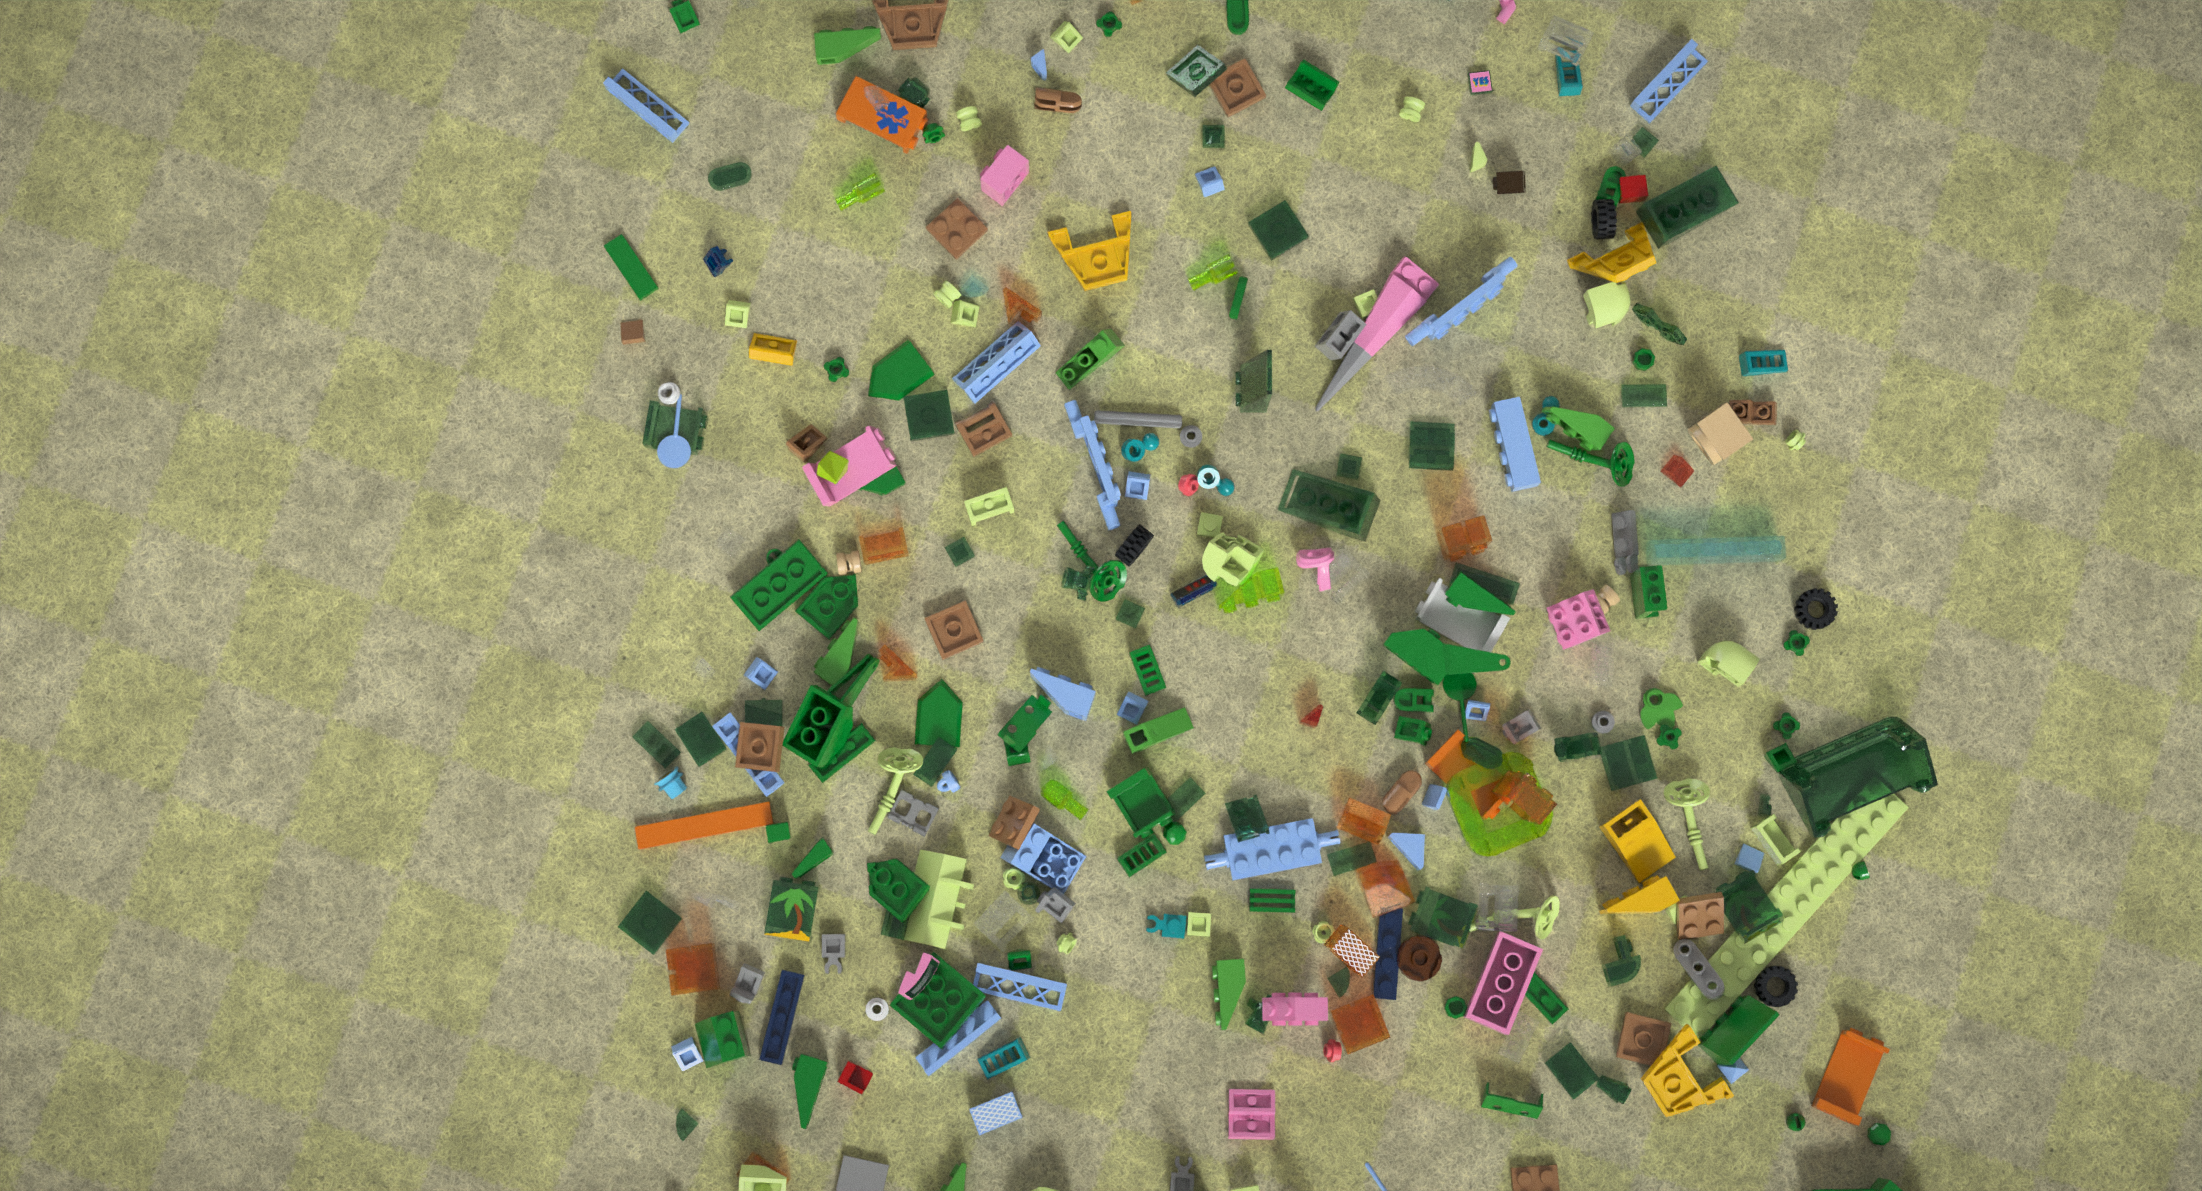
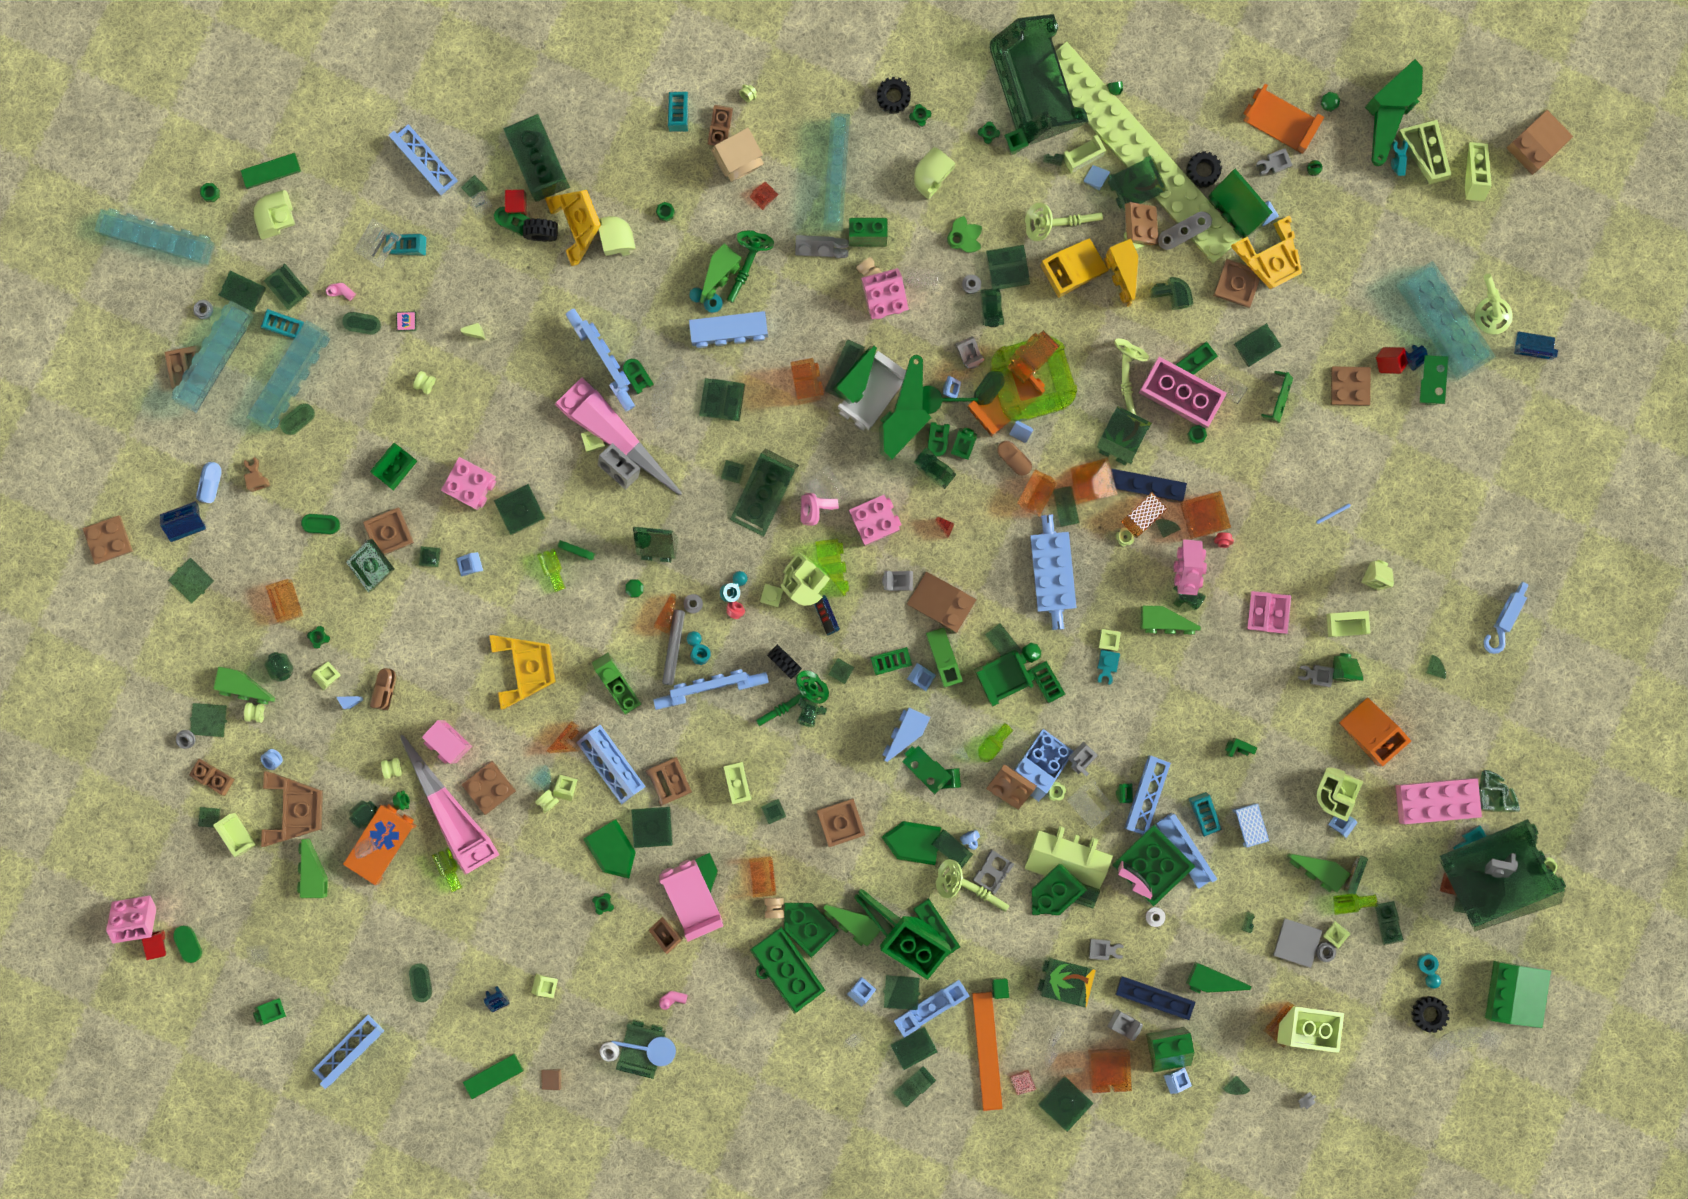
camera: 80 degrees left, 5 degrees up
(670, 871) = (1023, 1082): none -> clear red slope
(671, 783) = (949, 1076): medium azure piece -> none
(735, 456) = (670, 998): none -> bright pink arm
(759, 747) = (927, 998): medium nougat plate -> none
(772, 349) = (579, 957): yellow slope -> none
(816, 856) = (1021, 955): green slope -> none
(832, 467) = (691, 915): lime slope -> none
(855, 1077) = (1211, 940): red panel -> none
(880, 1121) = (1247, 925): none -> clear green tile
(900, 671) = (871, 871): clear orange slope -> none
(901, 204) = (464, 837): none -> bright pink plate
(1028, 900) = (1065, 780): clear green cone -> none
(1066, 943) = (1115, 752): yellowish green plate -> none
(1086, 1096) = (1243, 747): none -> green bracket
(1137, 485) = (730, 653): light blue slope -> none
(1168, 405) = (665, 618): none -> clear orange slope
(1201, 368) = (634, 588): none -> green tile
(1222, 722) = (941, 602): none -> medium nougat slope
(1242, 668) = (898, 580): none -> light grey bracket
(1247, 818) = (1025, 590): clear green plate -> none
(1252, 900) = (1094, 581): green tile -> none
(1301, 170) = (469, 484): none -> bright pink brick
(1310, 634) = (875, 520): none -> bright pink brick
(1410, 846) = (1061, 455): light blue slope -> none
(1419, 958) = (1154, 459): reddish brown tile -> none
(1454, 341) = (634, 369): none -> green plate
(1472, 33) = (361, 323): none -> clear green tile
(1505, 907) = (1119, 383): clear plate -> none
(1510, 182) = (499, 306): dark brown brick -> none
(1615, 1089) = (1276, 310): clear green cone -> none
(1644, 395) = (696, 215): clear green tile -> none
(1650, 318) = (642, 189): clear green tile -> none
(1674, 733) = (984, 232): green plate -> none
(1796, 1074) = (1276, 161): none -> light grey plate

